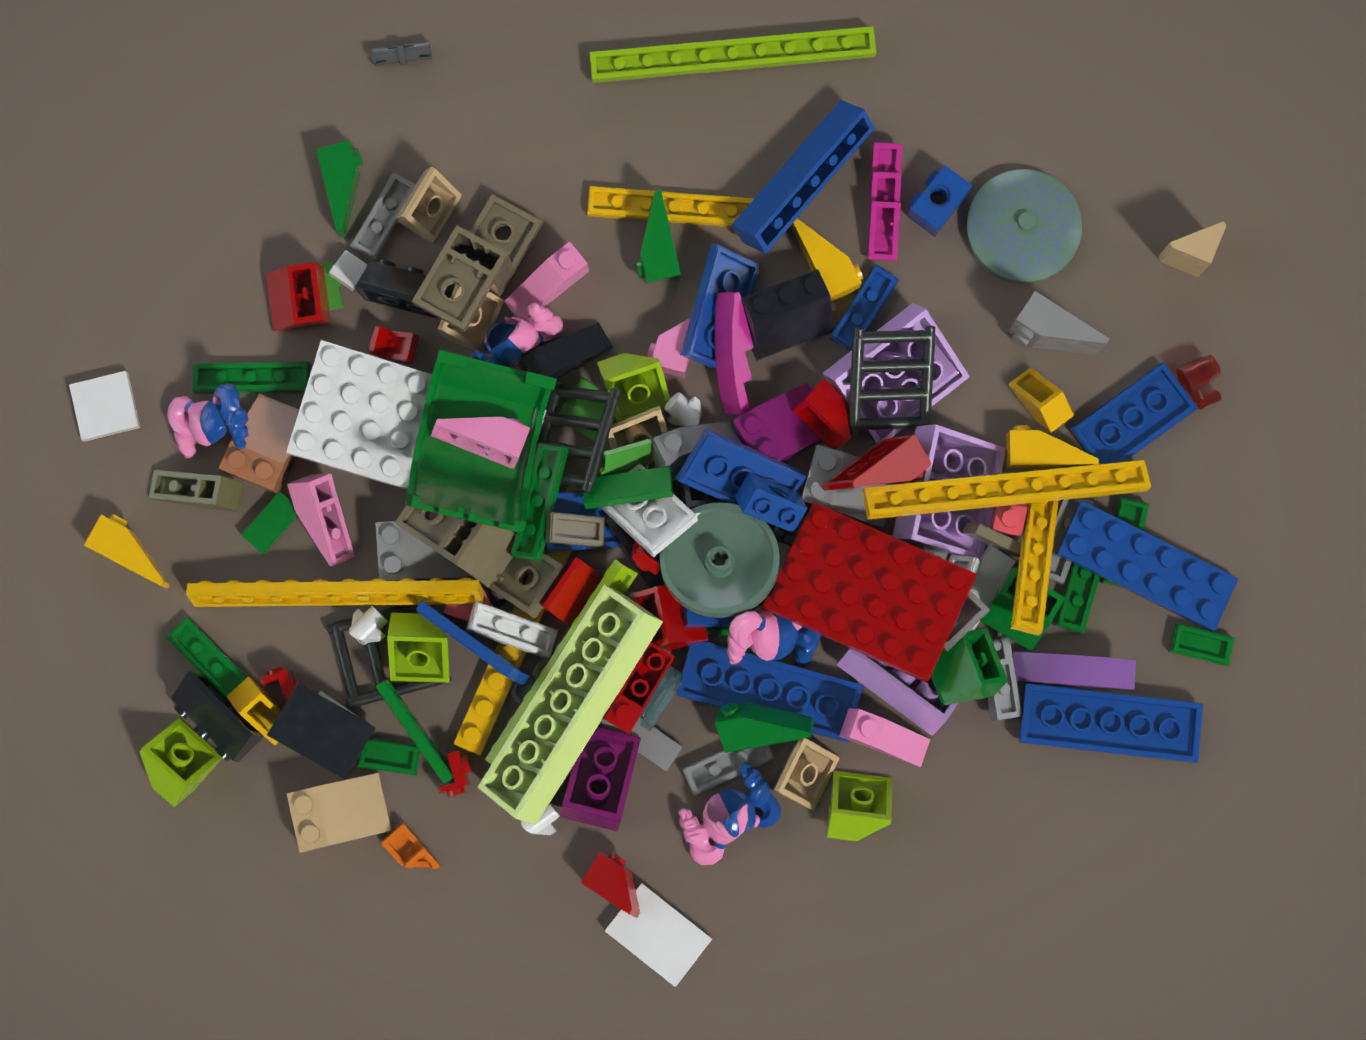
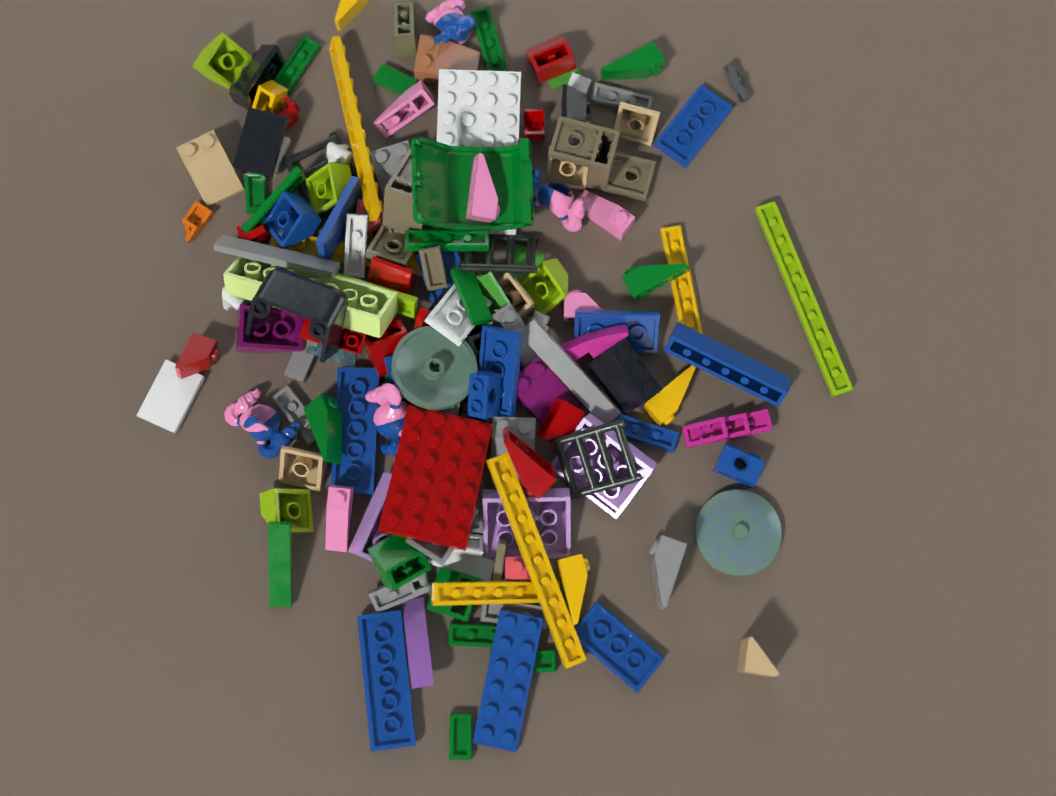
camera: 75 degrees right, 5 degrees down
(449, 130) = (693, 126): none -> blue tile
(450, 711) = (291, 220): none -> blue slope
(503, 741) = (277, 256): none -> light grey tile
(568, 352) = (557, 237): black slope -> none
(591, 710) = (305, 298): none -> black windscreen
(764, 384) = (569, 372): none -> light grey tile
(932, 827) = (280, 564): none -> green tile
(1041, 399) = (612, 574): yellow slope -> none
(1198, 374) = (661, 686): clear red piece -> none

